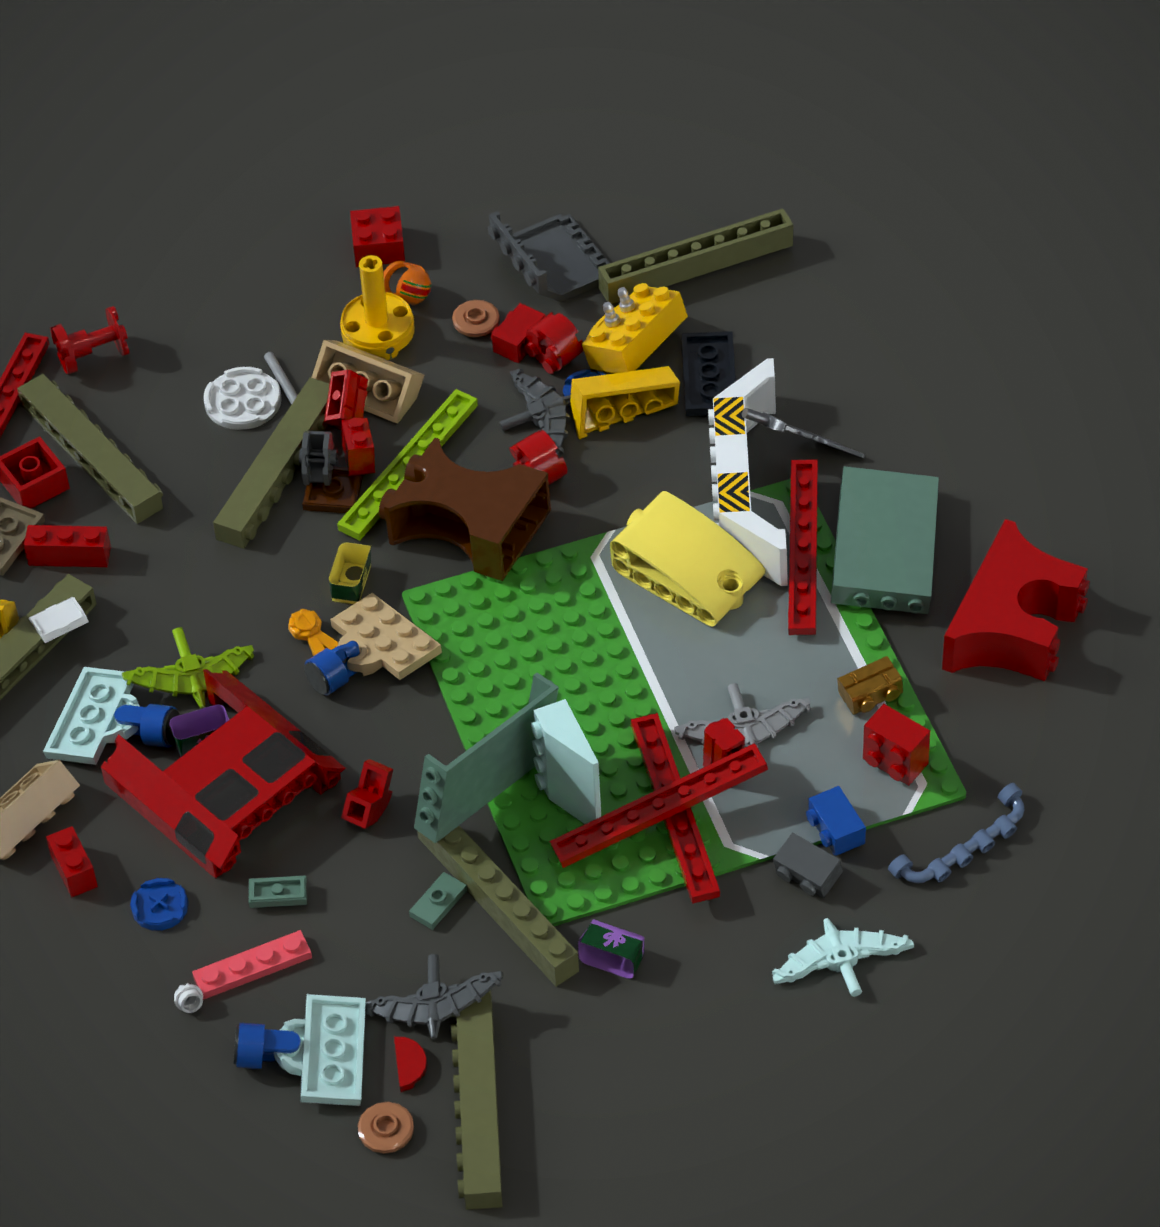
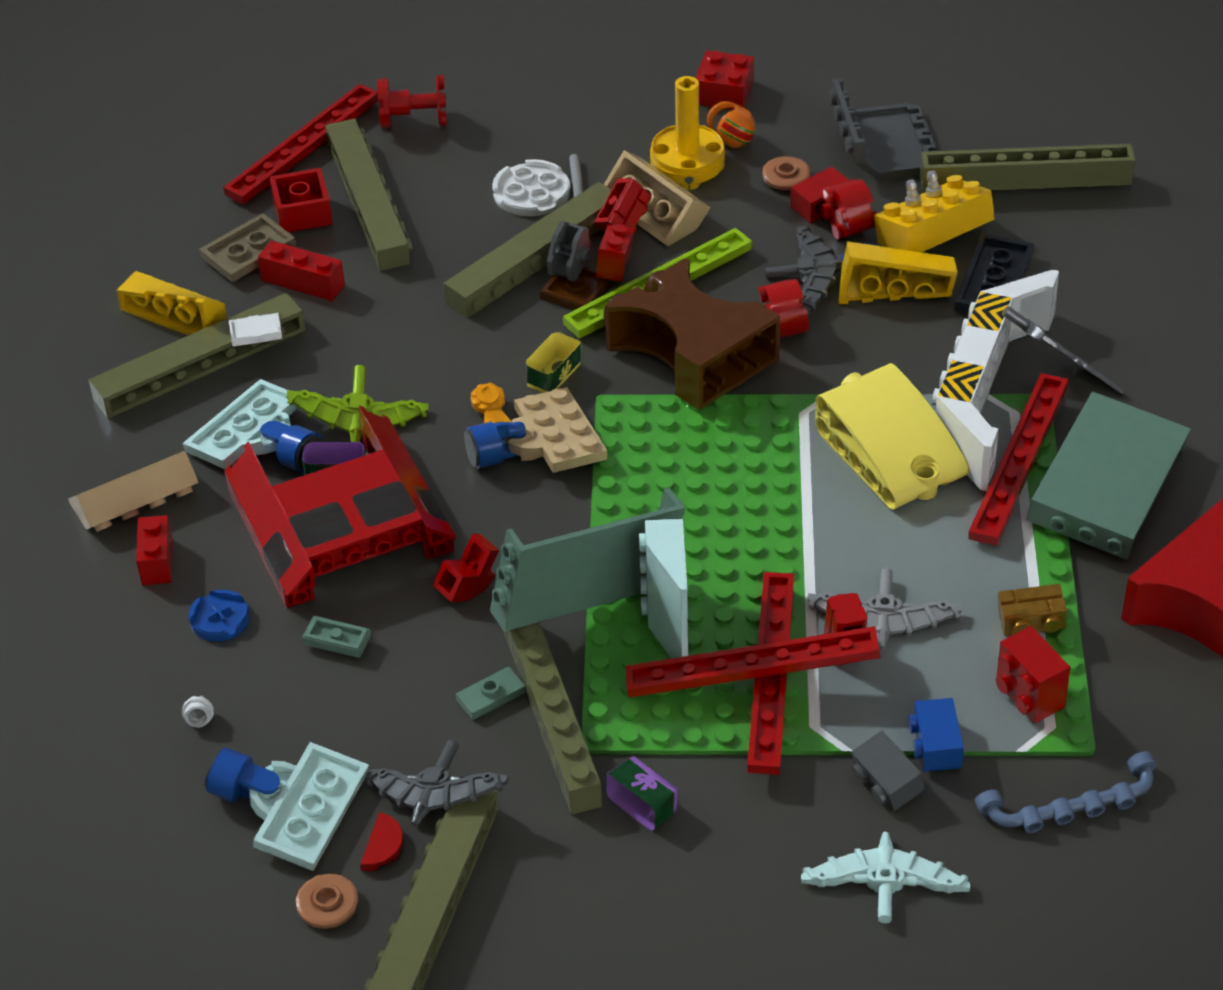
camera: 20 degrees right, 5 degrees down
(252, 964) = (277, 699): coral plate -> none

